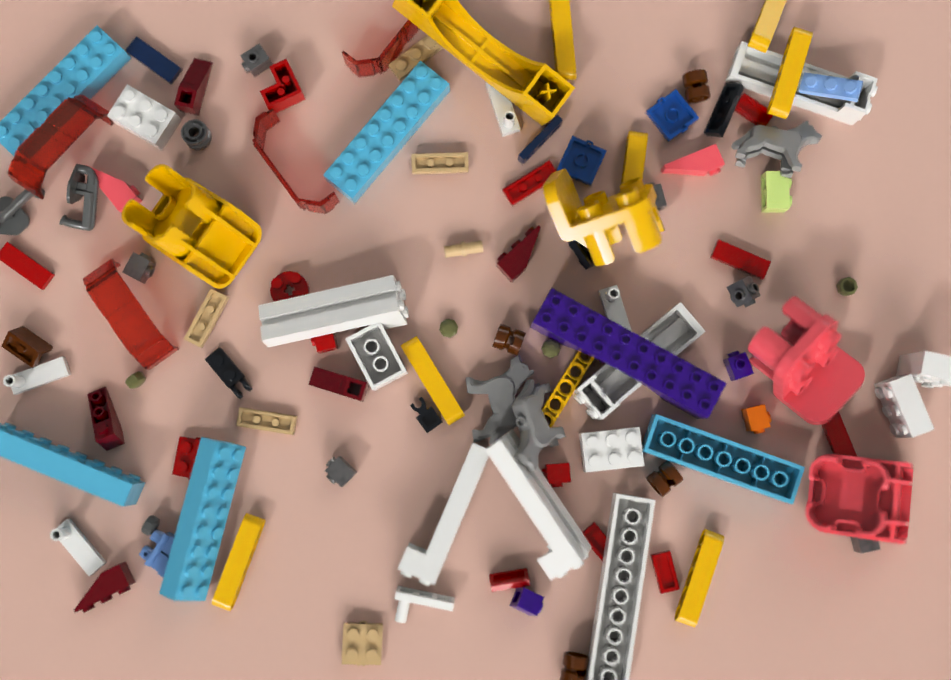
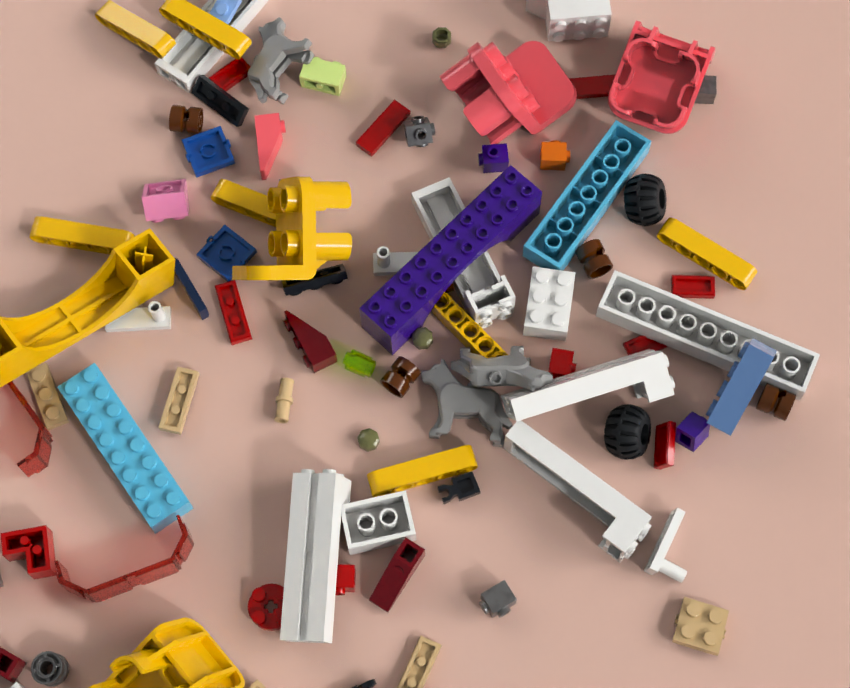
camera: 70 degrees left, 15 degrees down
(512, 301) = (359, 363): none -> clear neon green brick
(513, 545) = (627, 431): none -> black wheel
(574, 638) = (741, 387): none -> medium blue brick
(615, 93) = (165, 200): none -> bright pink slope
(736, 510) = (645, 199): none -> black wheel

